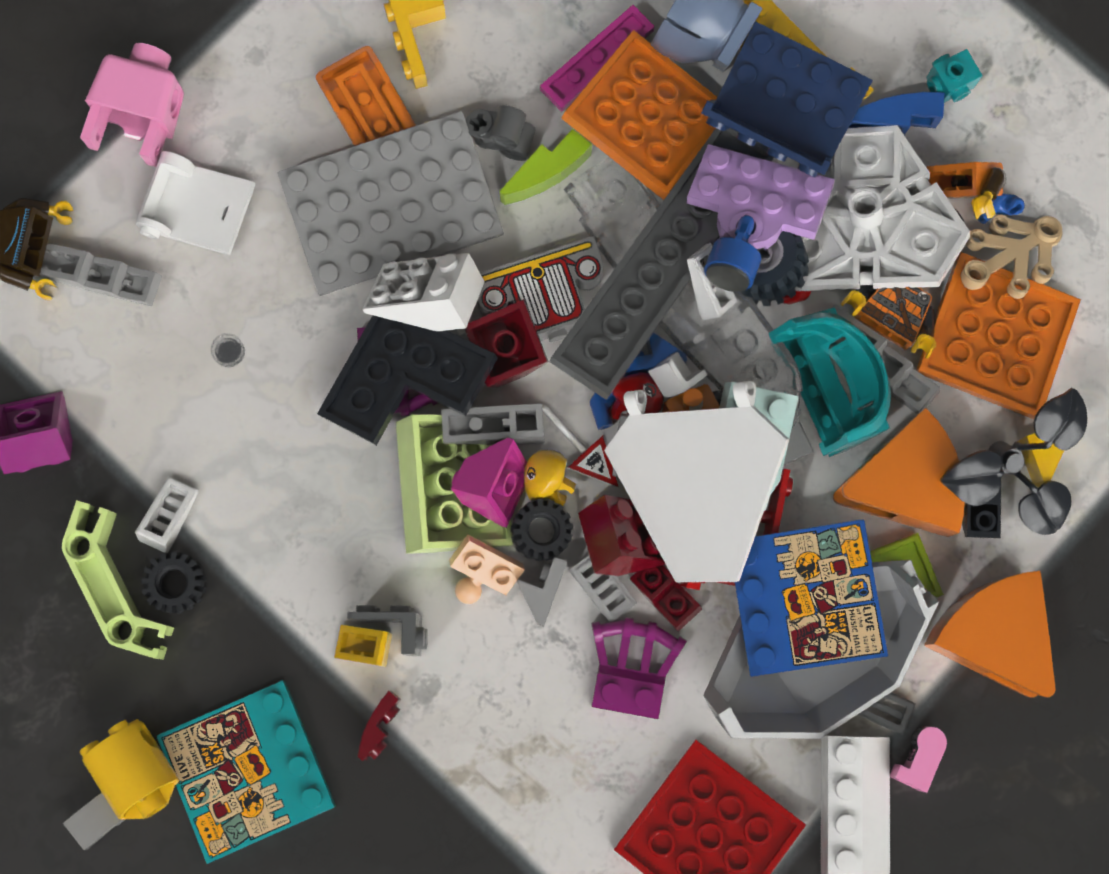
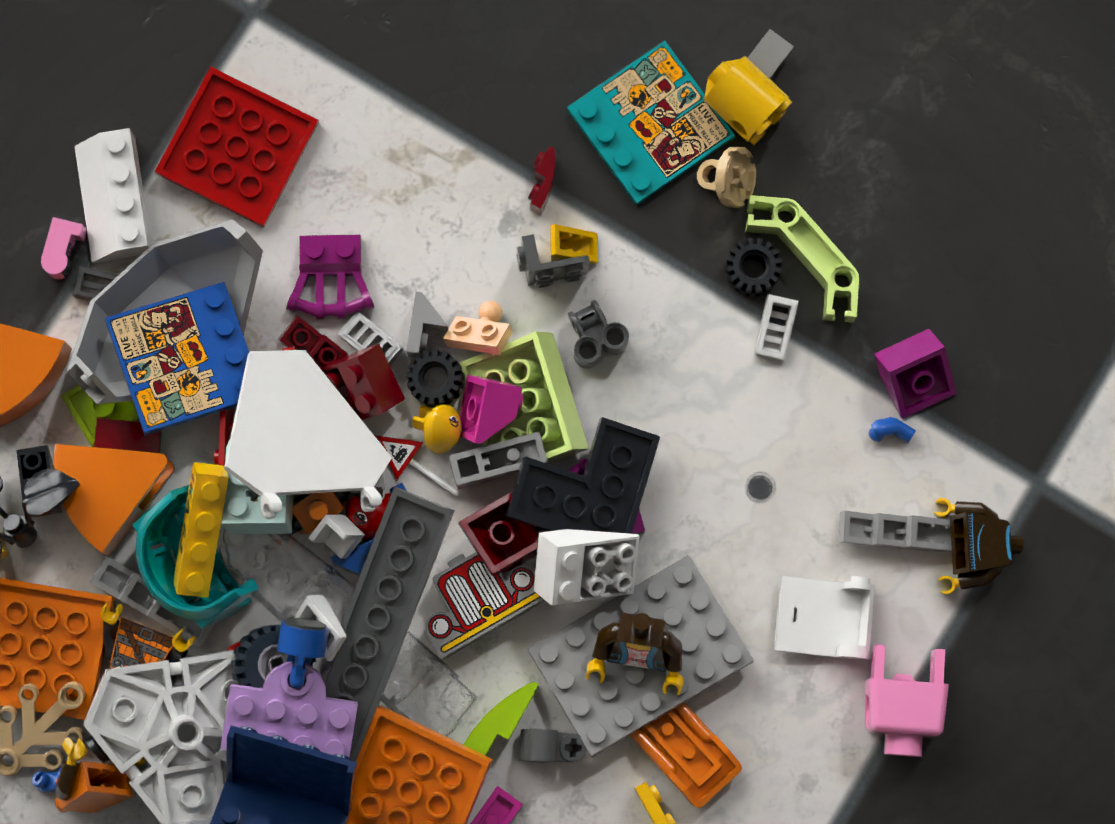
camera: 170 degrees right, 0 degrees up
(76, 383) = (890, 426): none -> blue arm
(169, 684) = (733, 178): none -> tan tile
(361, 545) = (592, 330): none -> dark grey piece
(387, 200) = (639, 643): none -> dark brown torso
(820, 401) = (200, 529): none -> yellow brick
(886, 532) = (125, 436): none -> dark red slope

